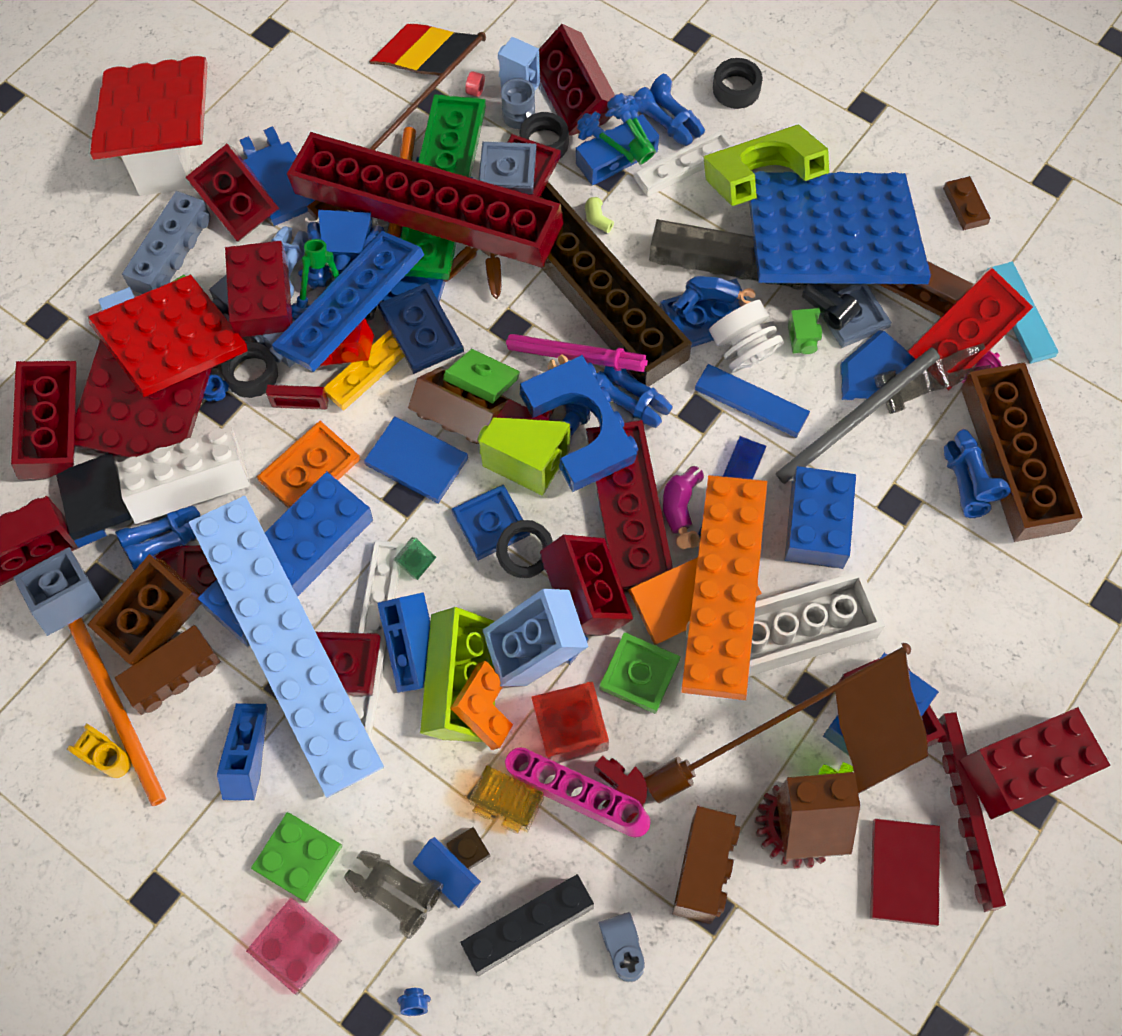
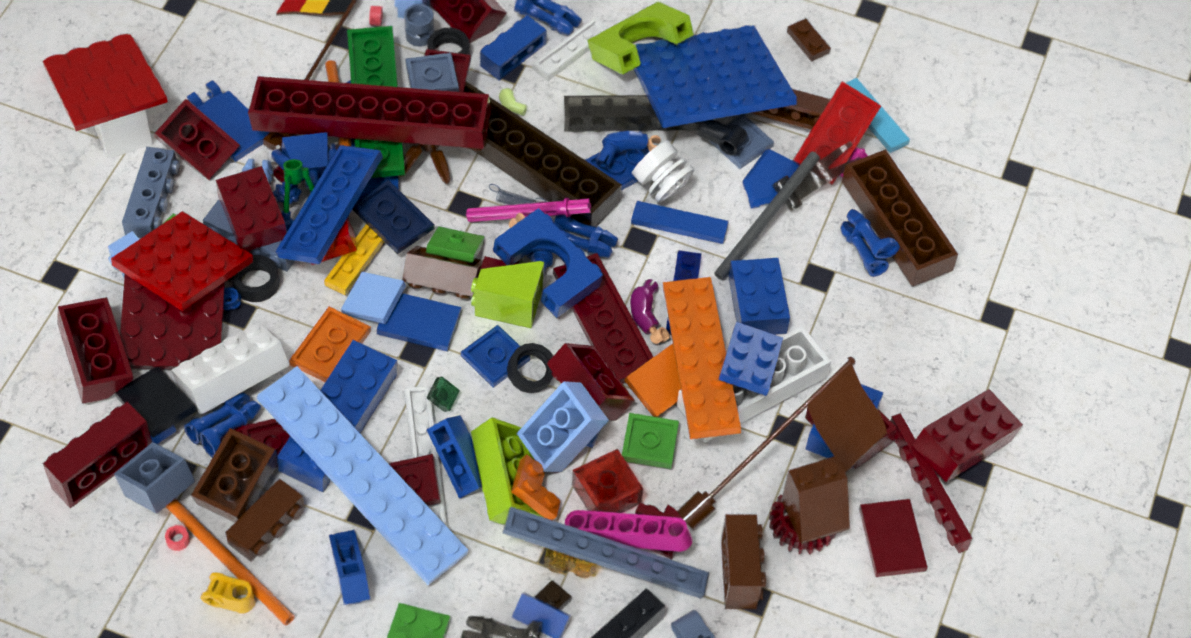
camera: 20 degrees left, 10 degrees down
(64, 658) = (173, 531): none -> coral axle
(297, 397) = (304, 291): dark red tile -> none
(371, 421) = (373, 297): none -> light blue tile
(542, 813) = (605, 552): none -> sand blue tile
(567, 331) = (514, 196): none -> sand blue piece
(626, 109) = (513, 12): plant -> none
(785, 604) = (751, 358): none -> plate
(804, 330) = (707, 160): bright green brick -> none

